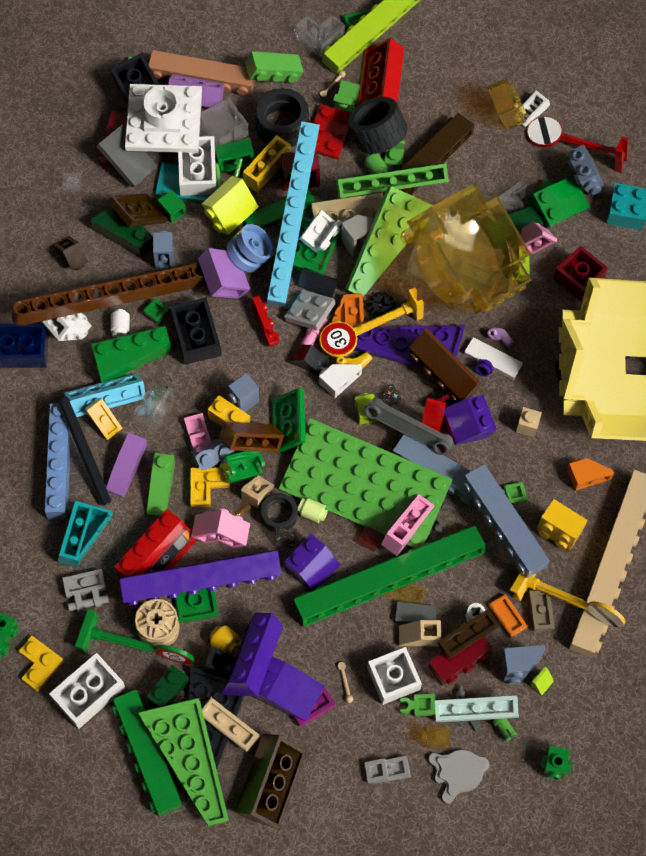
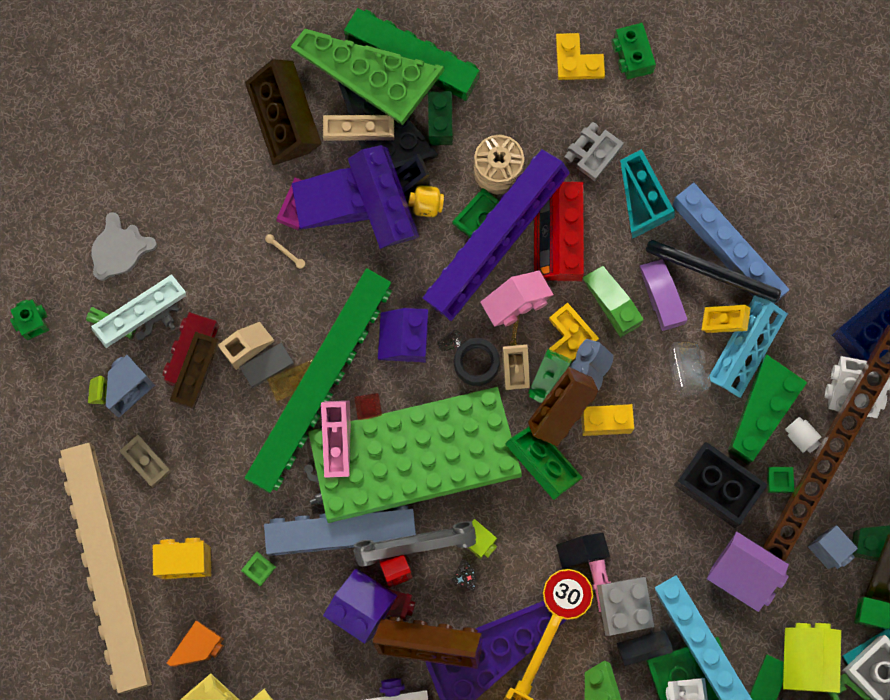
camera: 145 degrees right, 10 degrees up
(87, 690) = (509, 61): white brick -> none
(90, 632) = (554, 115): green piece -> none
(197, 430) = (626, 385): bright pink slope -> none
(244, 393) = (611, 450): sand blue brick -> none
(250, 248) = (745, 622): medium blue wheel -> none
(265, 324) = (658, 554): red hinge -> none
(312, 510) = (446, 389): yellowish green brick -> none
(339, 377) = (533, 551): white slope -> none
(350, 310) = (582, 639): orange wing -> none
(361, 360) = (530, 583): yellow arm -> none
(373, 307) = (552, 688): black gear -> none
(387, 770) = (186, 202): light grey slope -> none
(394, 675) = (240, 284): white brick -> none
(422, 705) = (196, 281): bright green plate -> none
(436, 737) = (161, 263): clear yellow bracket -> none
(475, 607) = (212, 410): white bush -> none
(505, 521) = (239, 514): sand blue brick -> none
(508, 615) = (176, 432): orange tile -> none
(528, 422) = (298, 656): tan brick -> none
(599, 610) = (179, 479): yellow piece -> none

